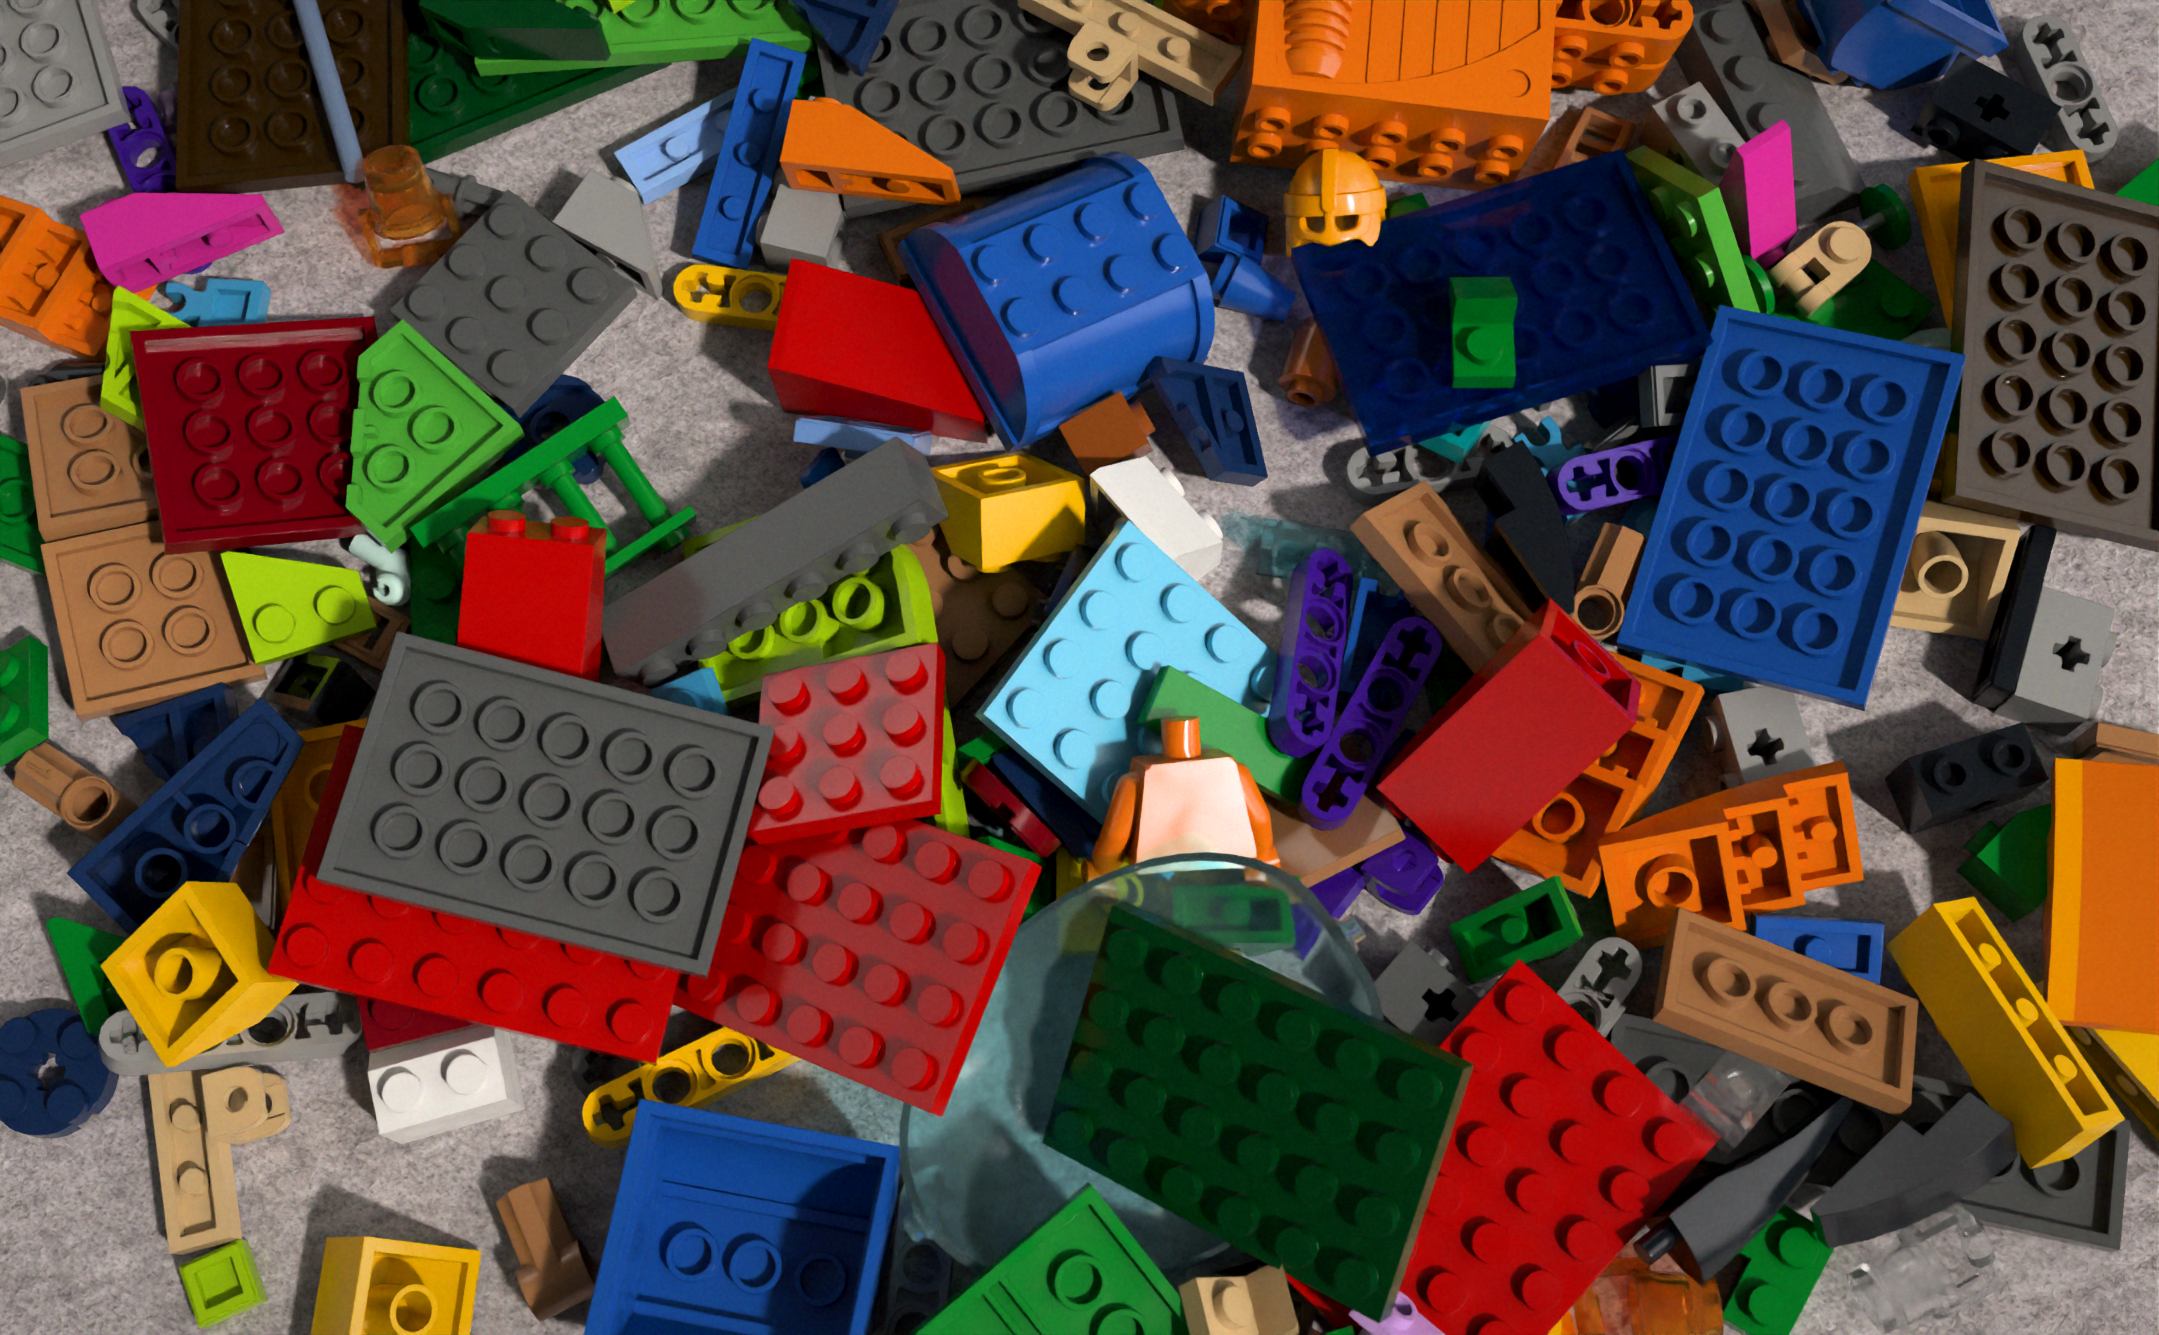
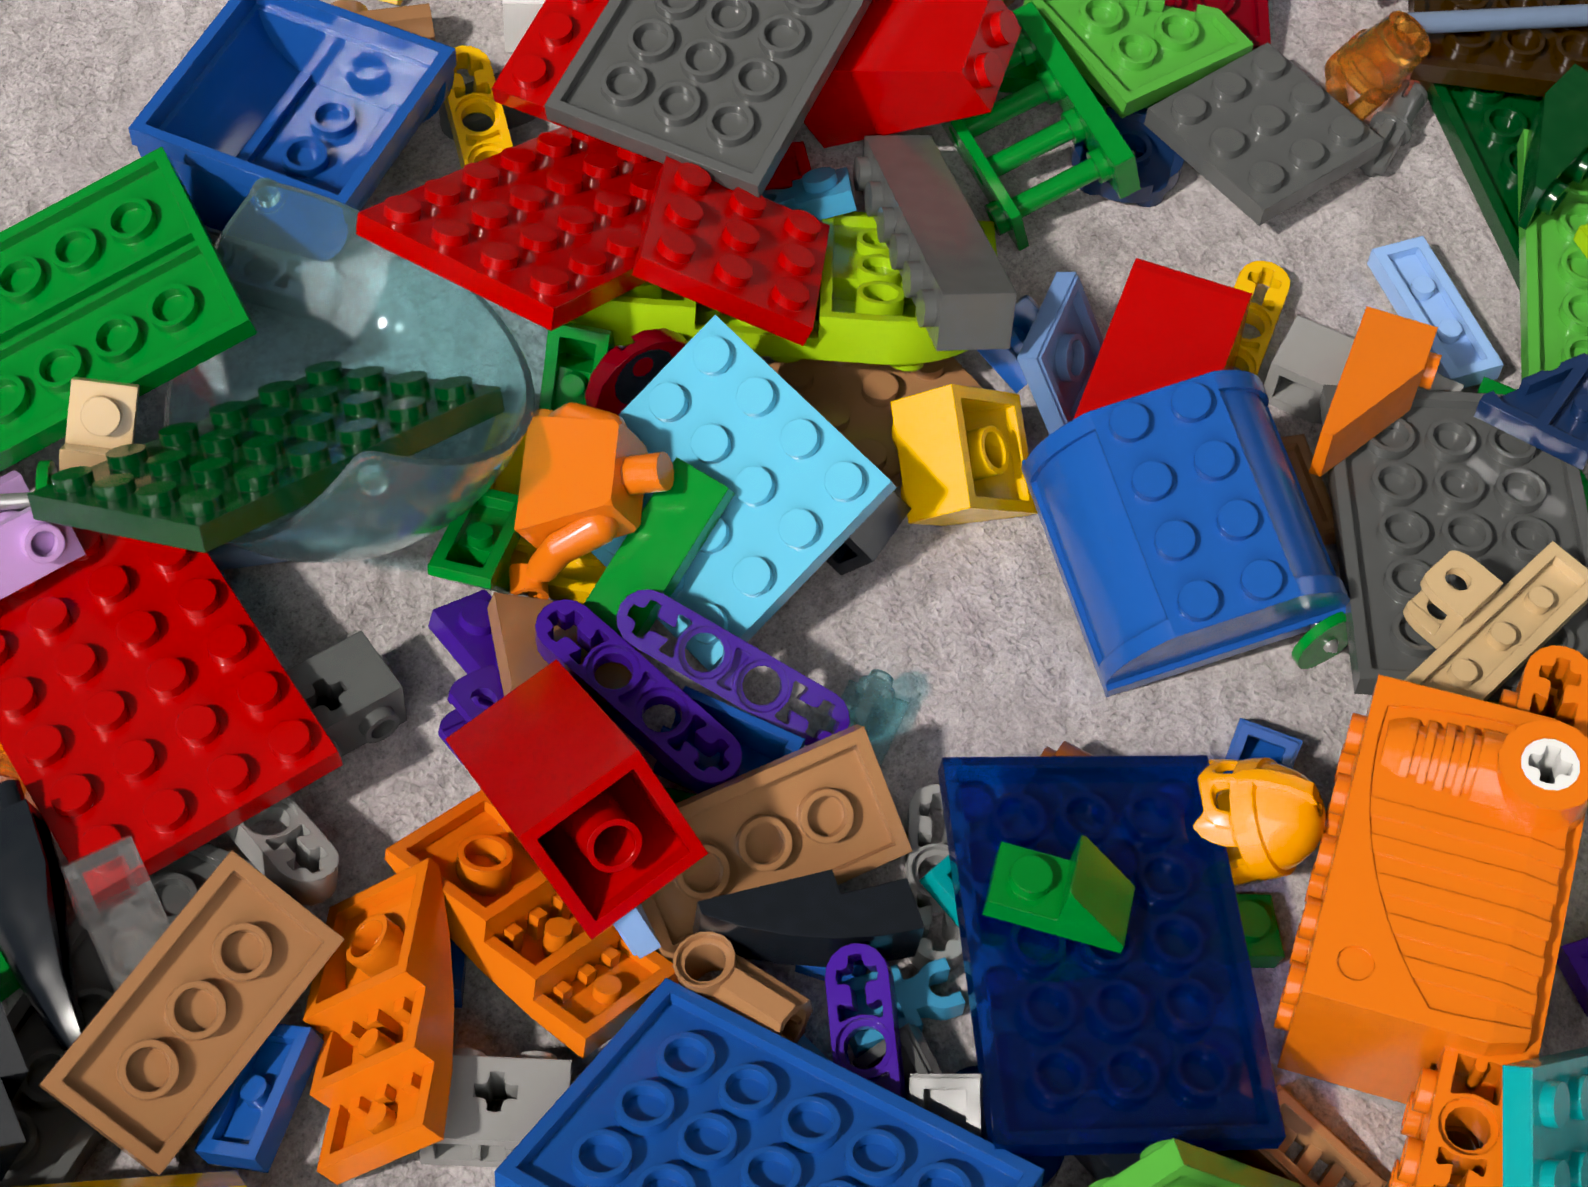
camera: 95 degrees right, 15 degrees down
(612, 225) = (1334, 225): light grey slope -> none
(748, 155) = (1469, 344): blue plate -> none
(1108, 433) = (1025, 564): dark orange brick -> none
(1156, 506) = (915, 576): white slope -> none
(1214, 417) = (1029, 667): dark blue wing -> none
(1251, 289) = (1192, 732): blue cone -> none
(1522, 927) = (379, 802): green slope -> none

